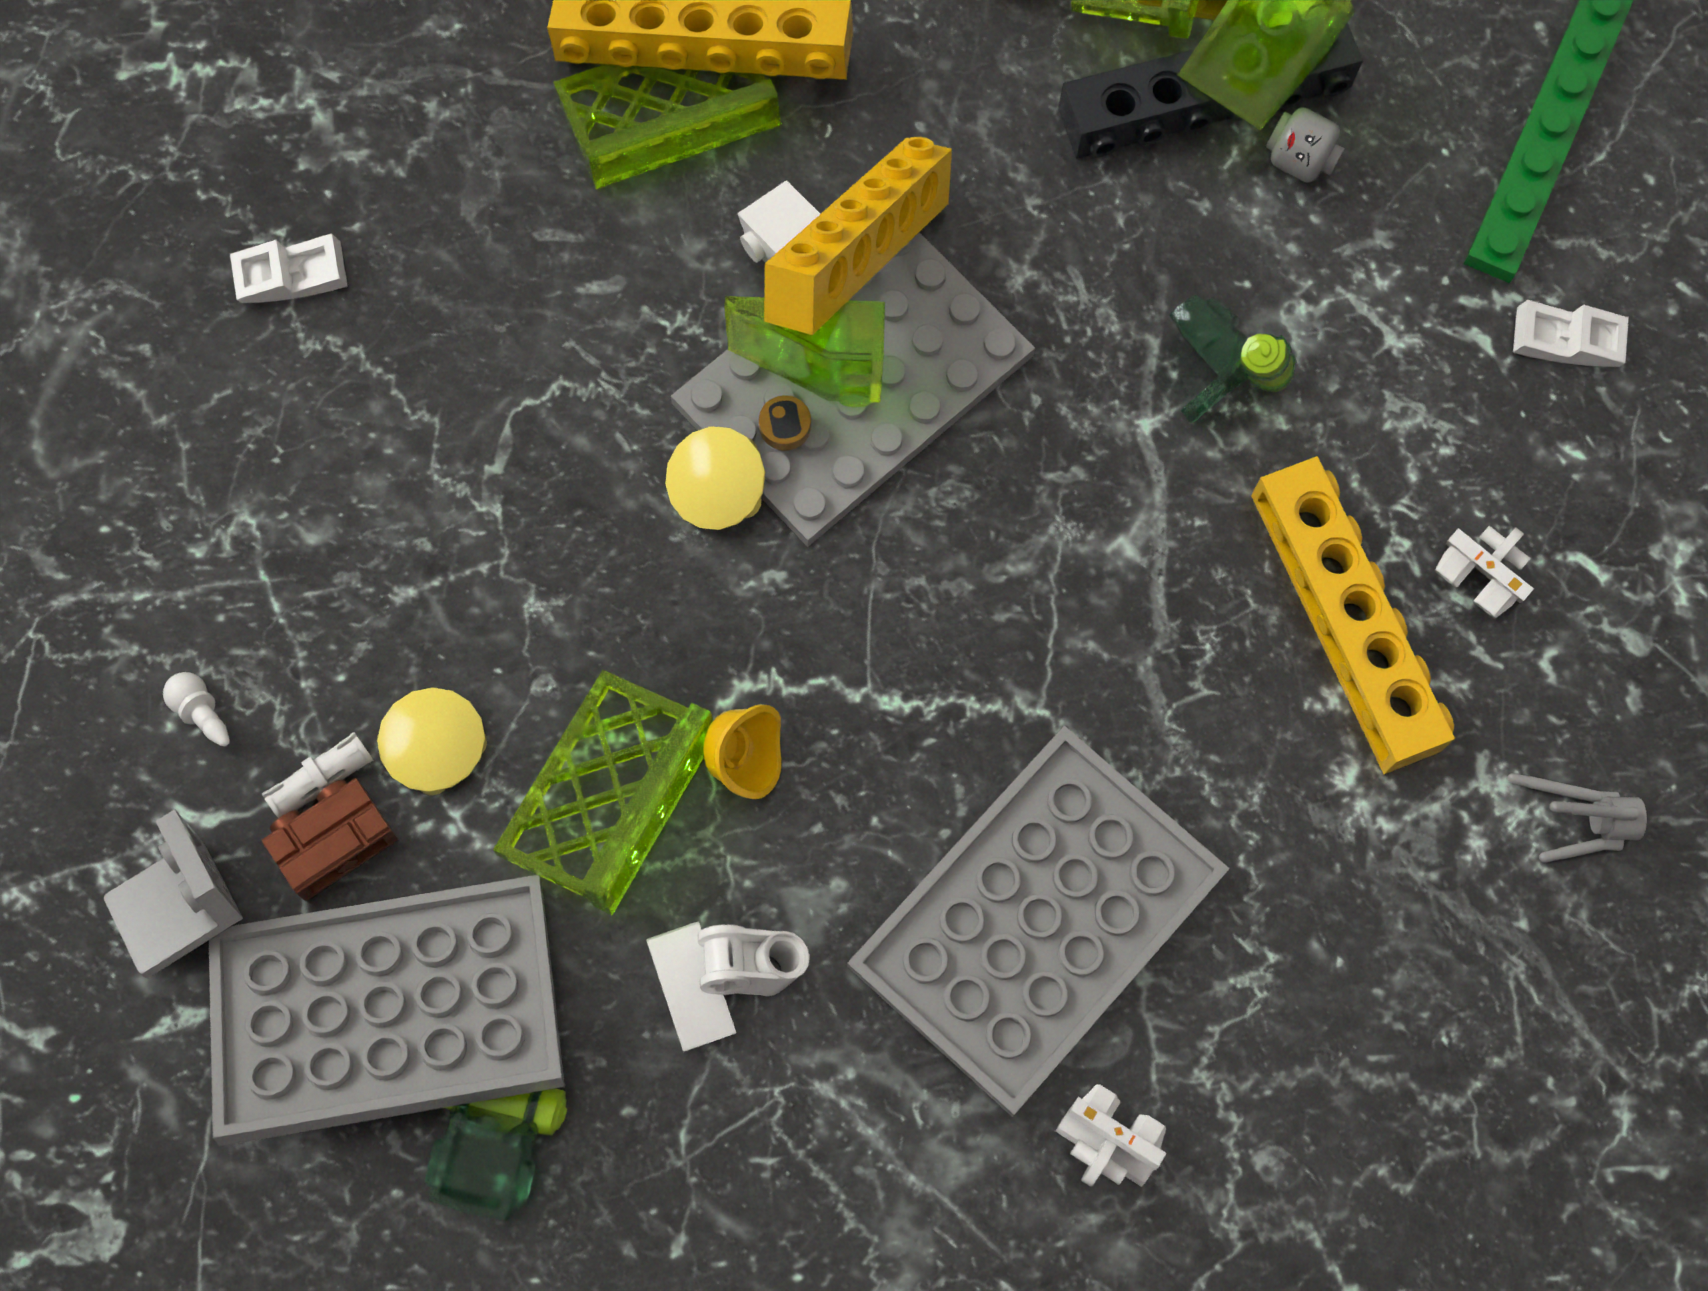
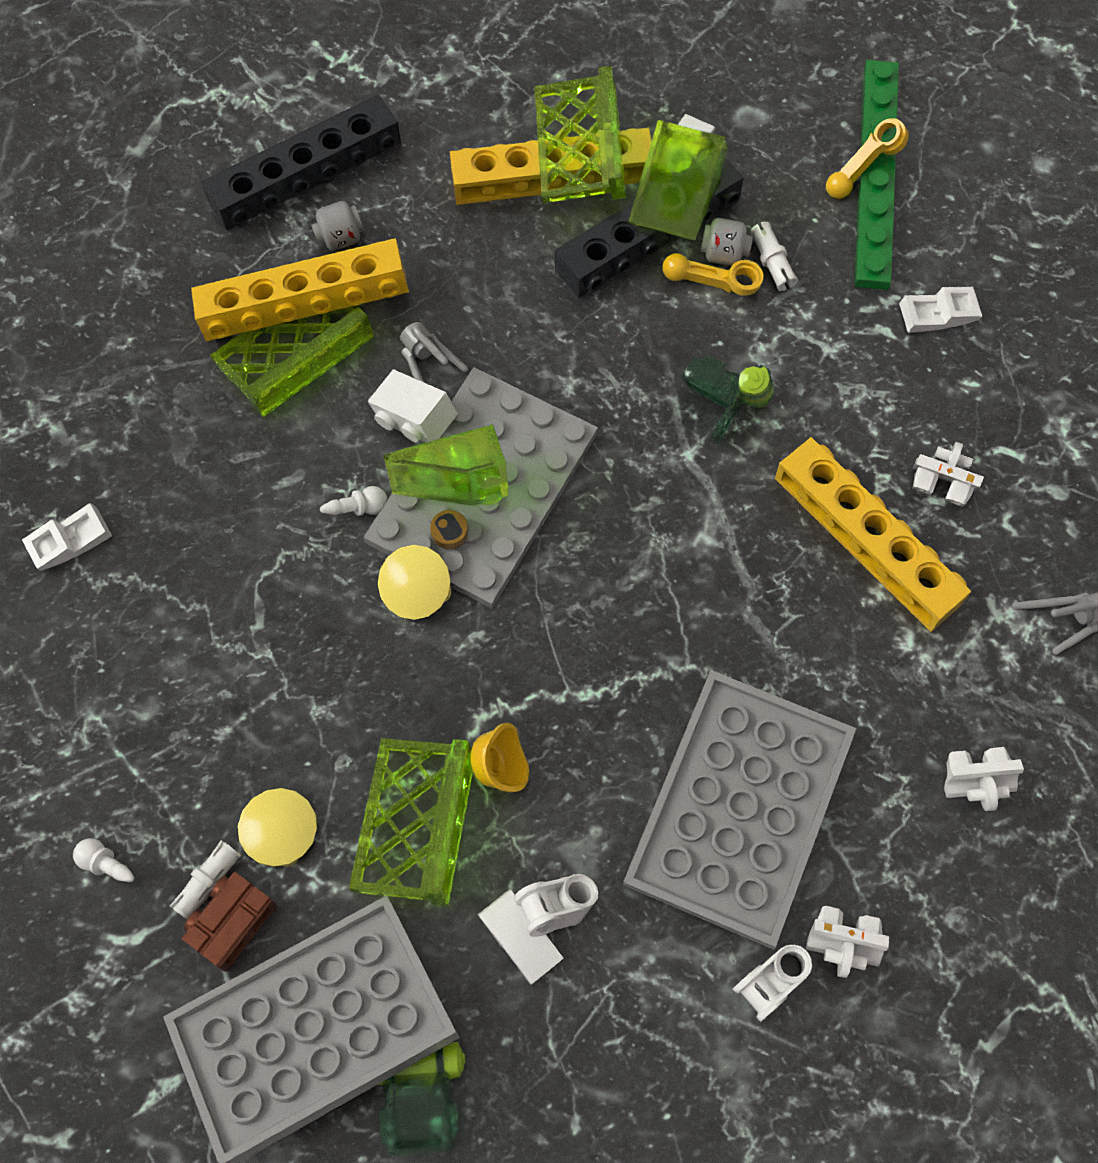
camera: 15 degrees left, 5 degrees down
(172, 902) = (130, 1006): light grey bracket -> none
(695, 349) = (368, 501): none -> white bar
(838, 157) = (422, 344): none -> light grey plant
(856, 236) = (456, 388): yellow brick -> none
(993, 1157) = (772, 981): none -> white piece
(1226, 160) = (678, 267): none -> yellow piece
(1365, 185) = (773, 256): none -> white pin
(1375, 995) = (984, 780): none -> white hips
(1499, 110) = (841, 183): none -> yellow piece

